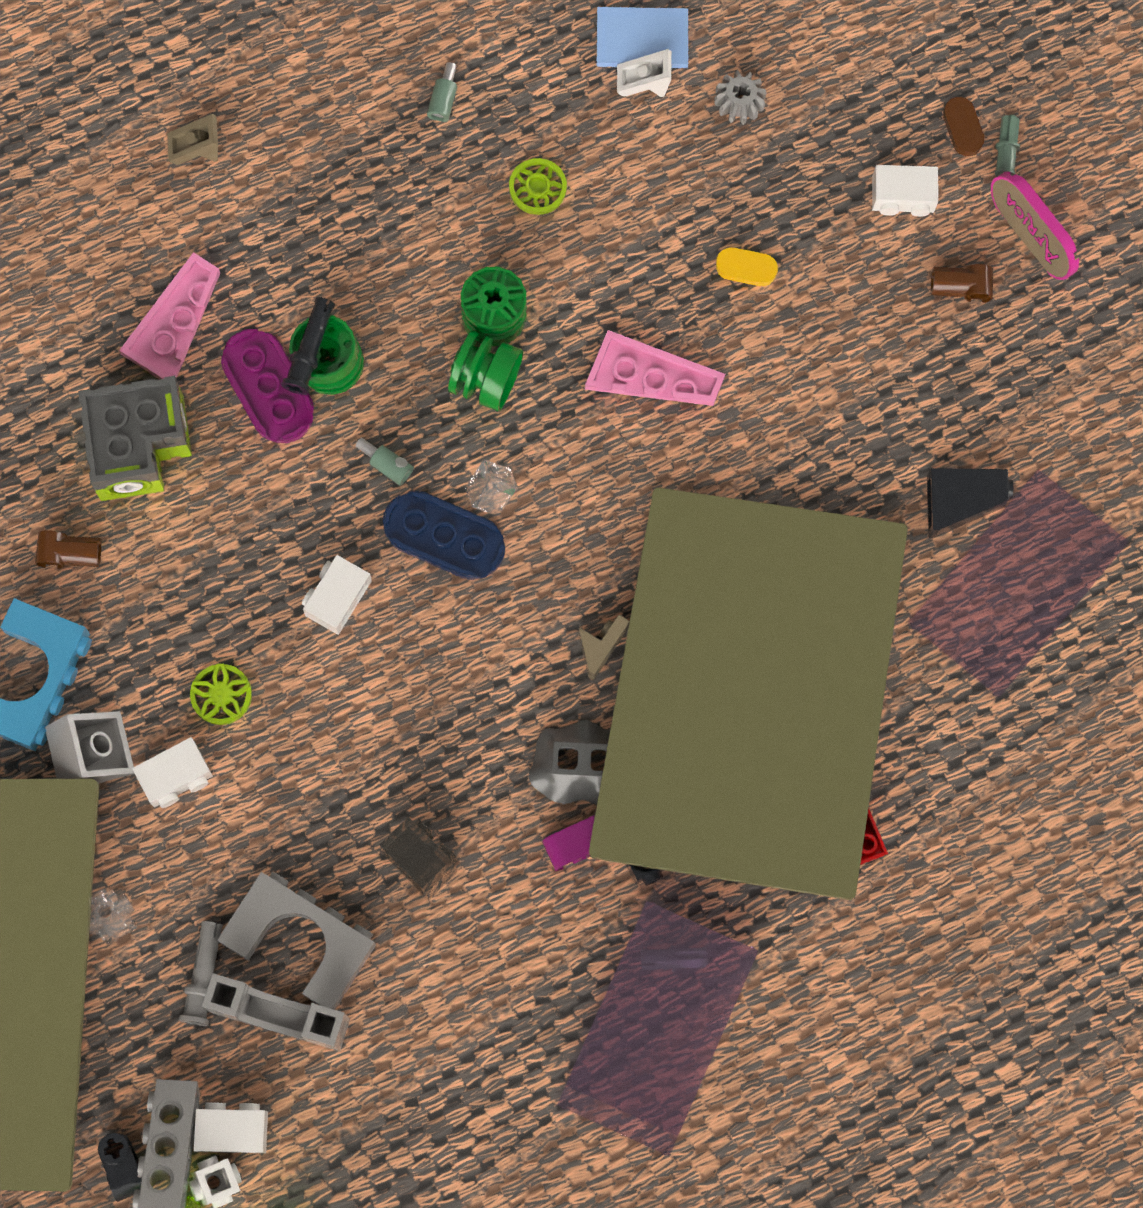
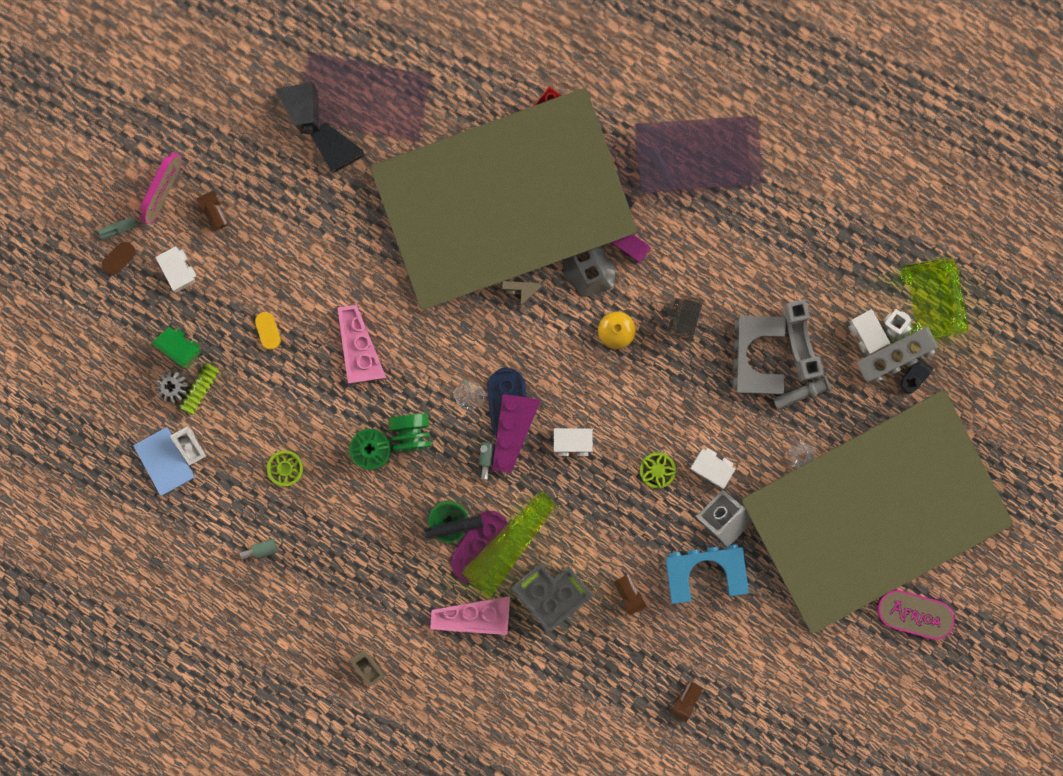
camera: 115 degrees left, 10 degrees up
(237, 406) = (501, 554): none -> clear neon green wing
(409, 522) = (513, 427): none -> magenta wing
(462, 751) = (616, 330): none -> yellow cylinder
(716, 132) = (199, 388): none -> lime piece
(790, 128) = (177, 347): none -> green slope
(1049, 478) = (302, 106): none -> black slope

